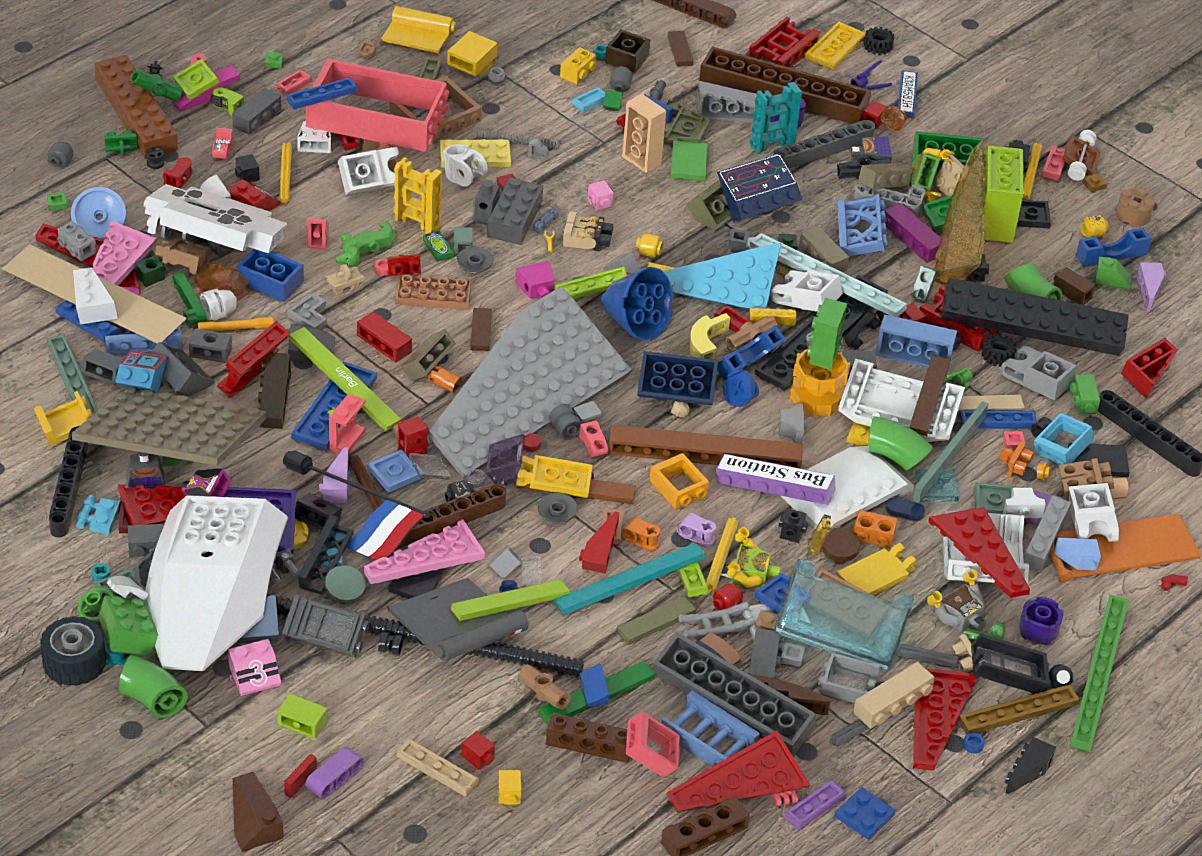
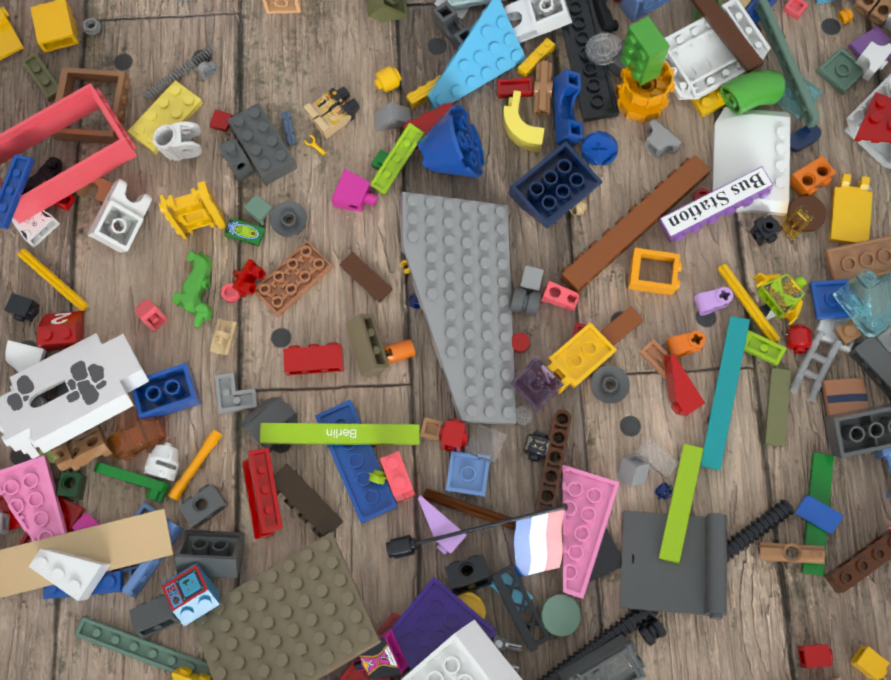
camera: 40 degrees left, 30 degrees up
(600, 195) = (301, 67): bright pink brick -> none
(1014, 459) = (817, 23): orange hips -> none

